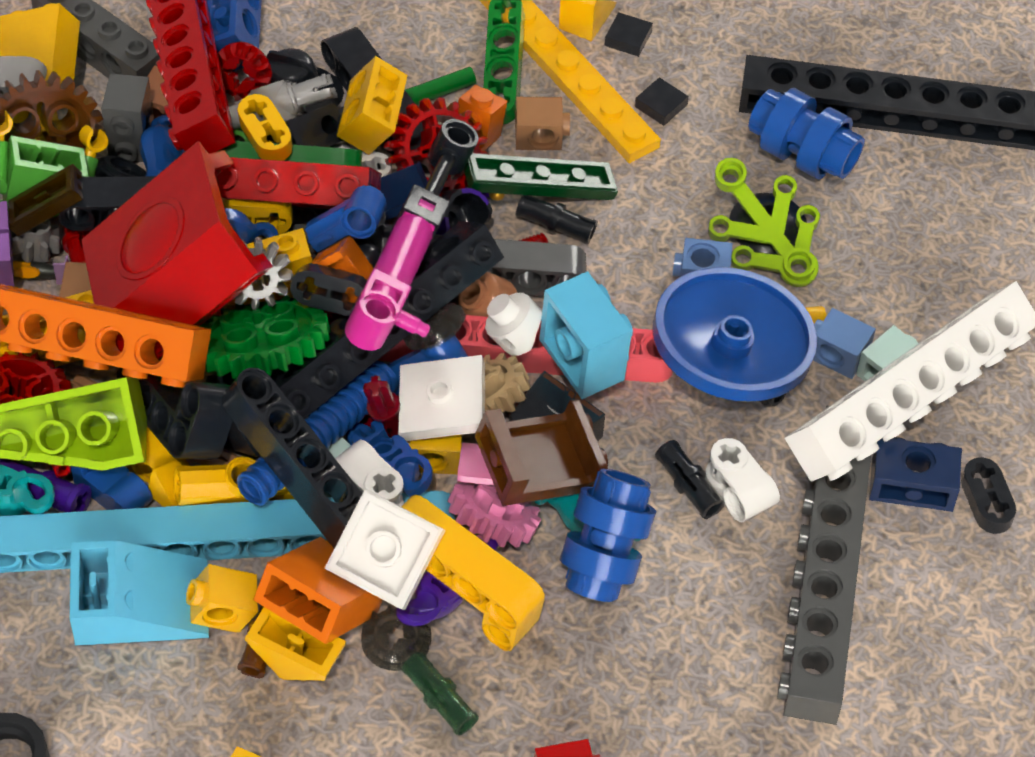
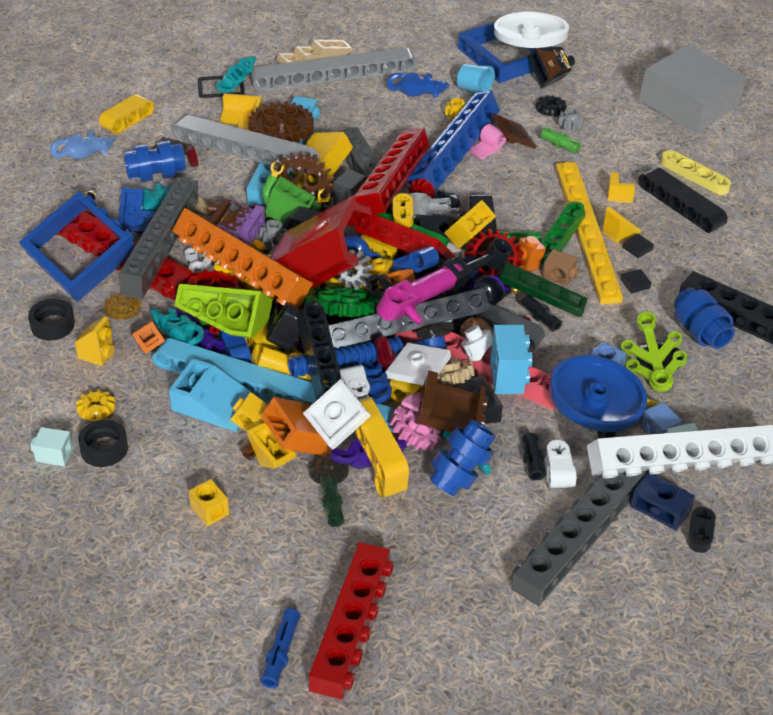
camera: 30 degrees right, 10 degrees down
(45, 200) = (281, 211): dark brown tile -> none

